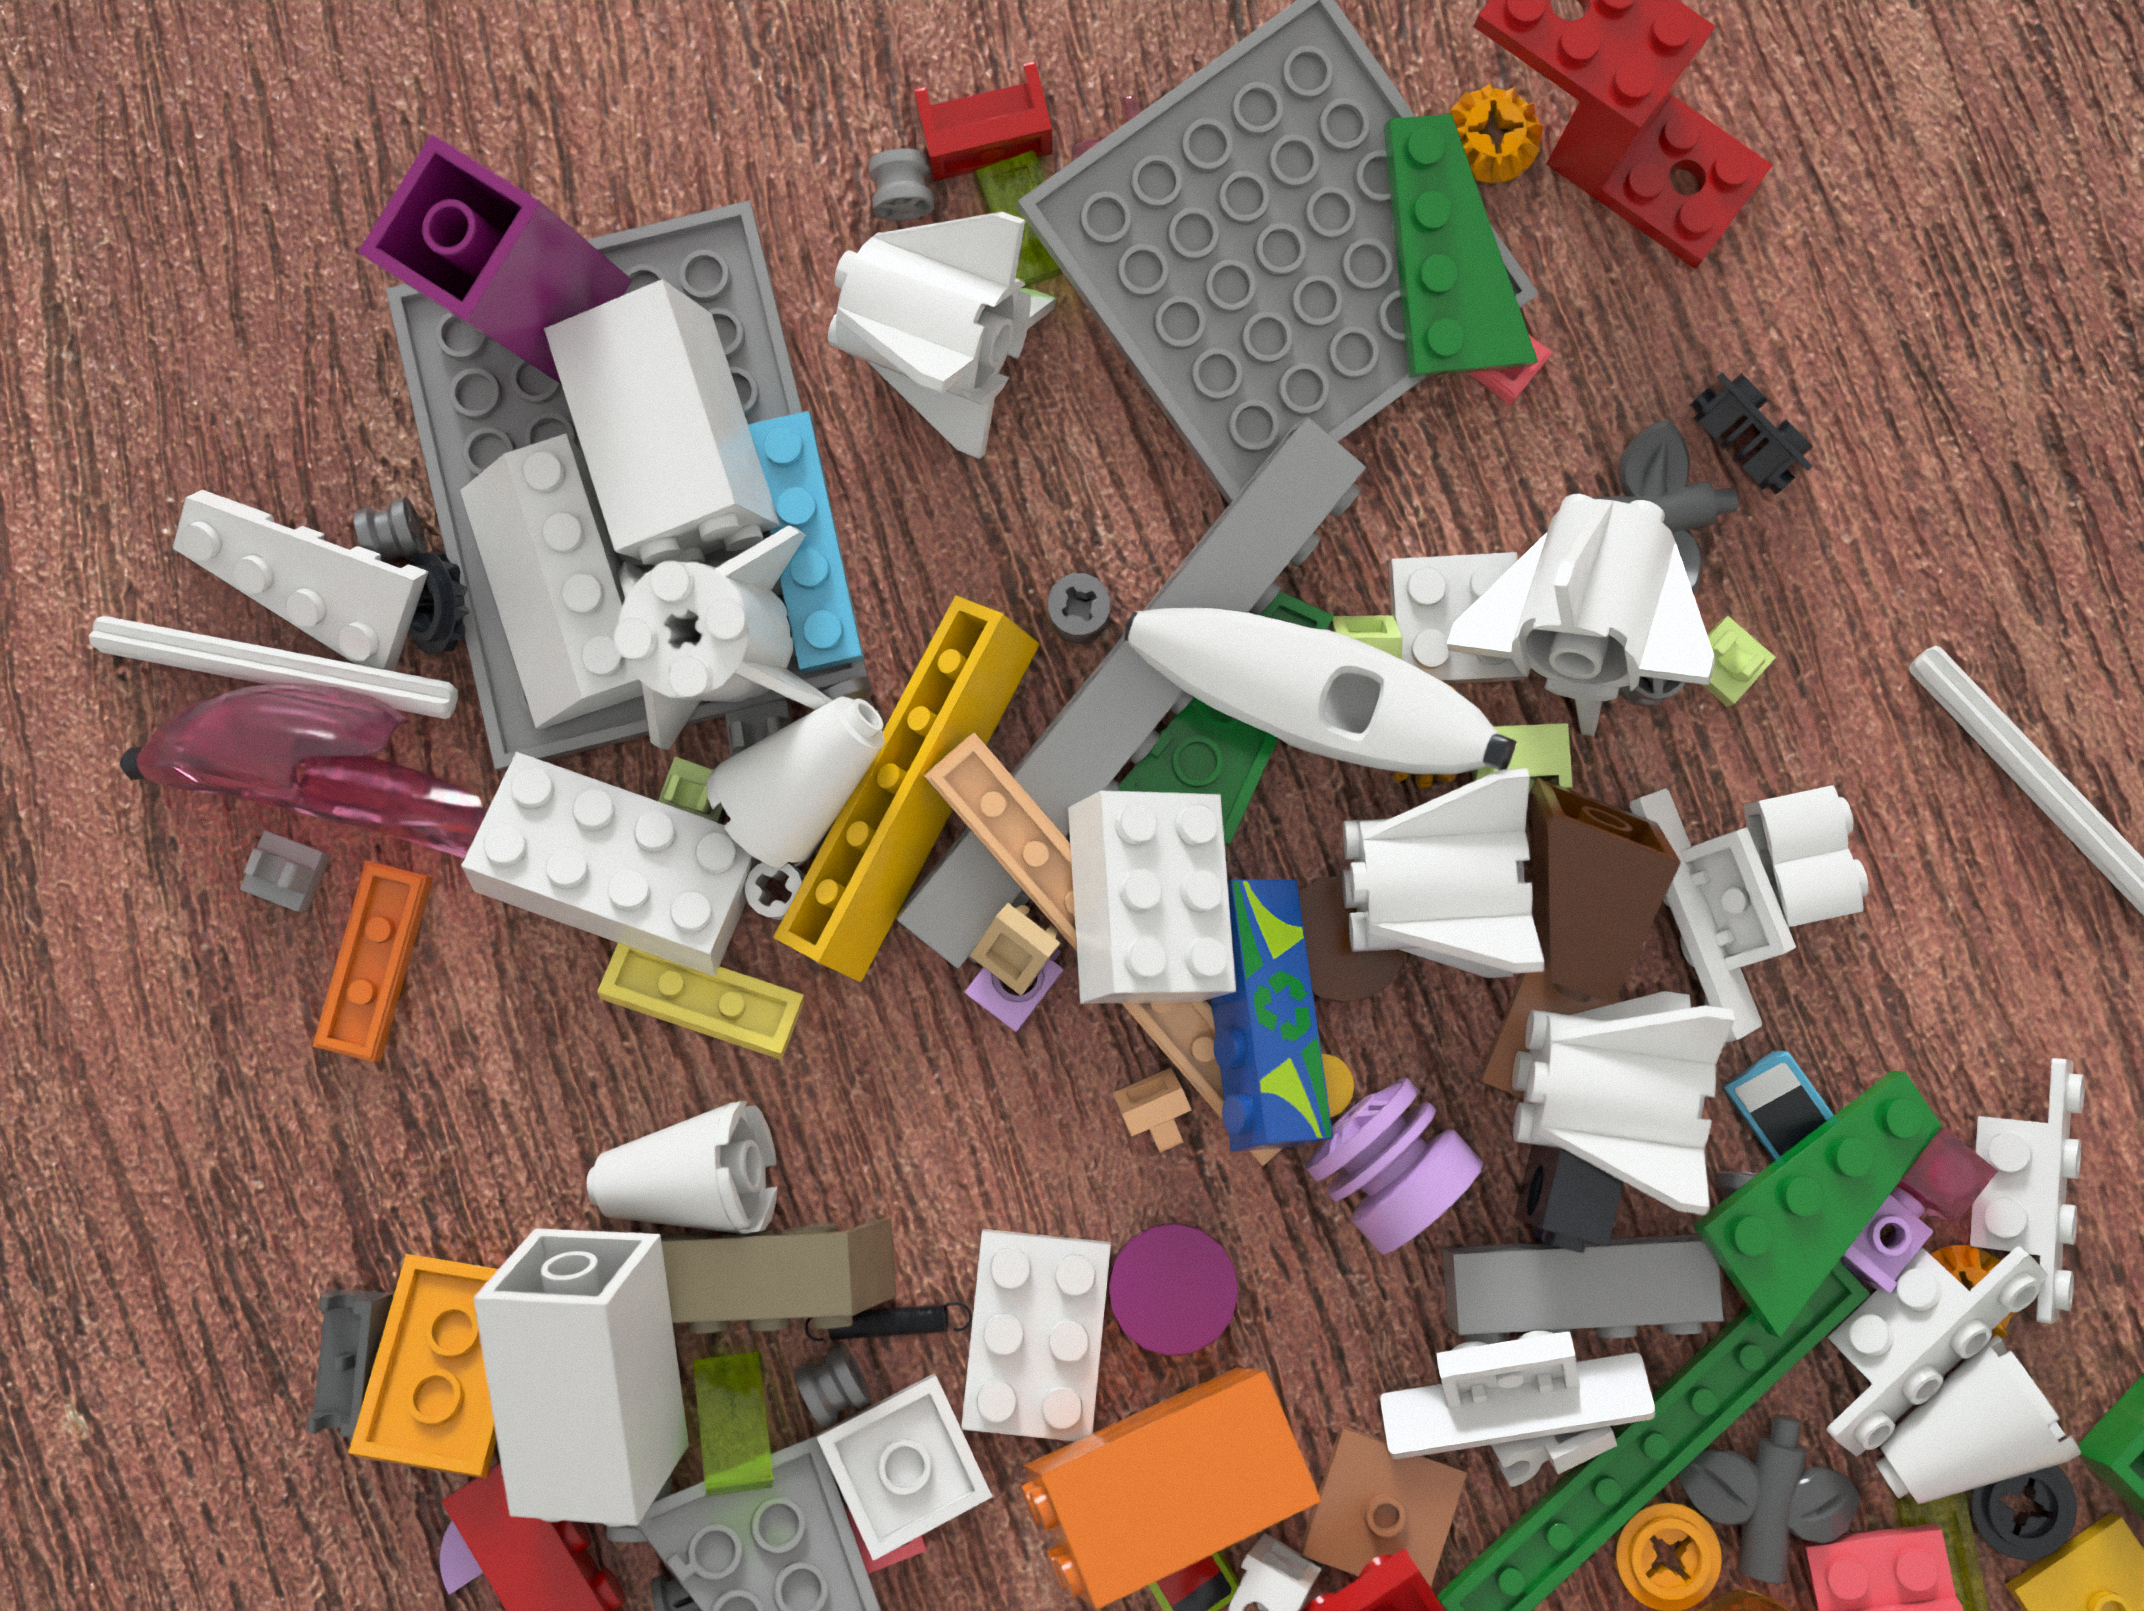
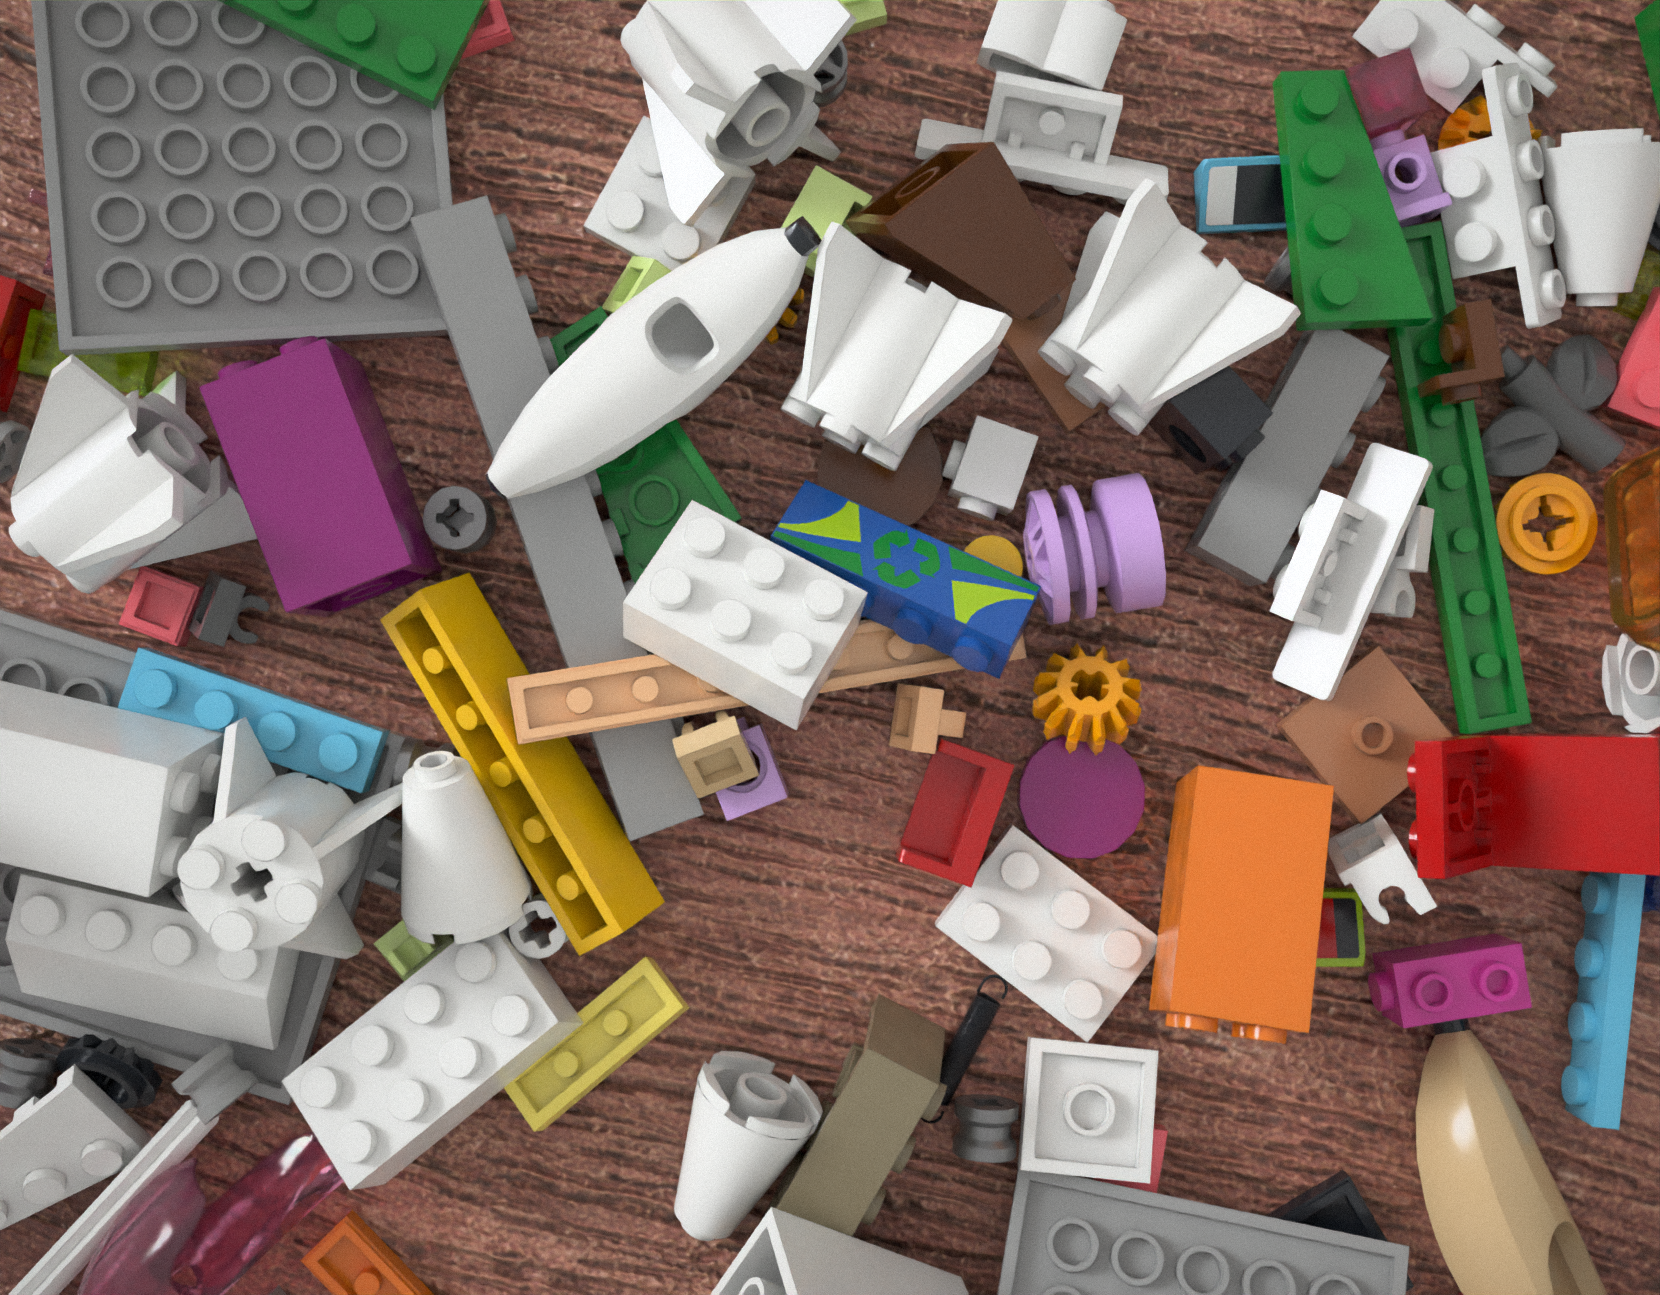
camera: 55 degrees left, 5 degrees up
(481, 697) = (215, 1082): none -> light grey wheel
(732, 1424) = (966, 1232): clear neon green tile -> none
(852, 407) = (161, 606): none -> coral tile
(880, 455) = (219, 609): none -> dark grey tile
(1043, 474) = (319, 477): none -> magenta brick
(1091, 1185) = (954, 812): none -> red panel
(1260, 1240) = (1086, 699): none -> light orange gear
(1405, 1031) = (989, 468): none -> white brick
(1777, 1388) = (1472, 348): none -> reddish brown bracket

